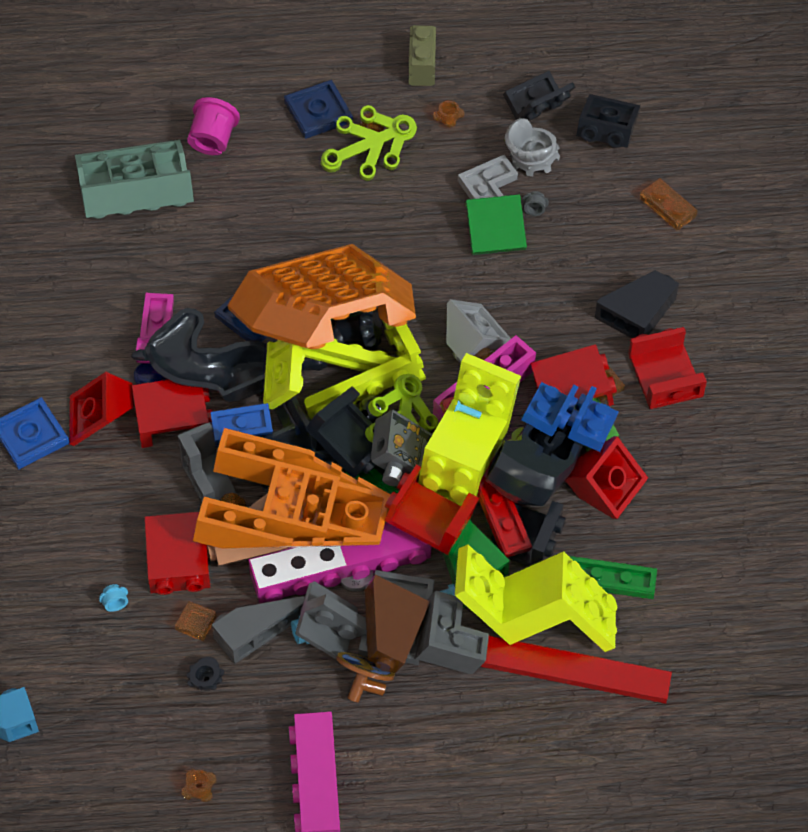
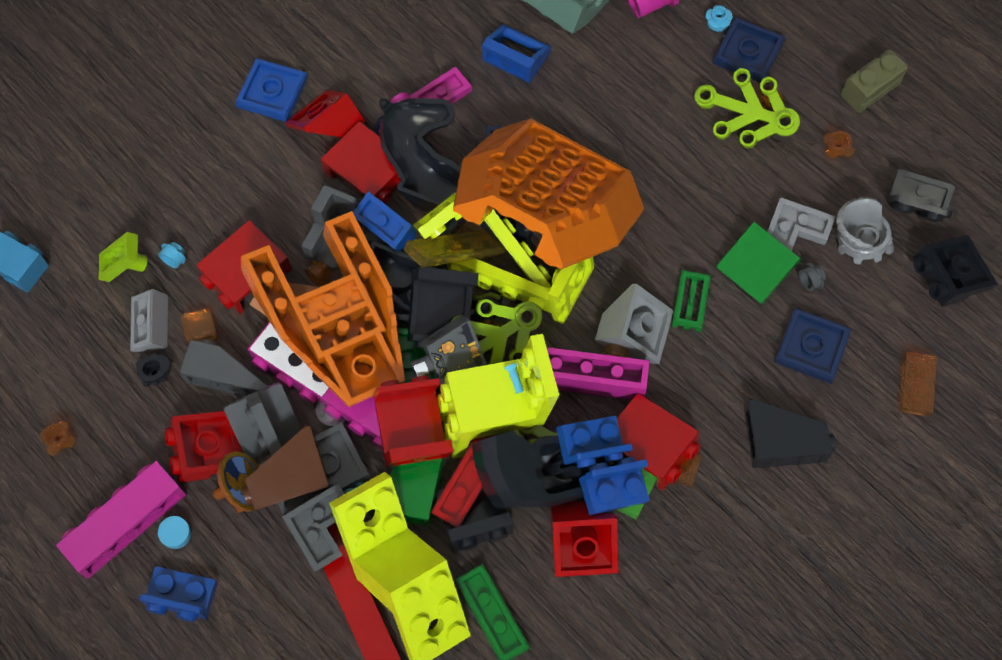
camera: 55 degrees right, 10 degrees up
(84, 632) = (121, 256): none -> lime tile
(155, 655) = (149, 321): none -> light grey slope
(174, 255) = (512, 60): none -> blue tile
(273, 107) = (716, 23): none -> medium azure plate
(306, 678) = (199, 444): none -> red plate
(313, 391) = (453, 248): none -> clear yellow tile
(358, 749) = (174, 532): none -> medium azure tile
(413, 777) = (179, 593): none -> blue bracket
(480, 290) = (687, 322): none -> green tile
(585, 242) = (813, 345): none -> dark blue tile
(665, 368) = (740, 506): red panel -> none

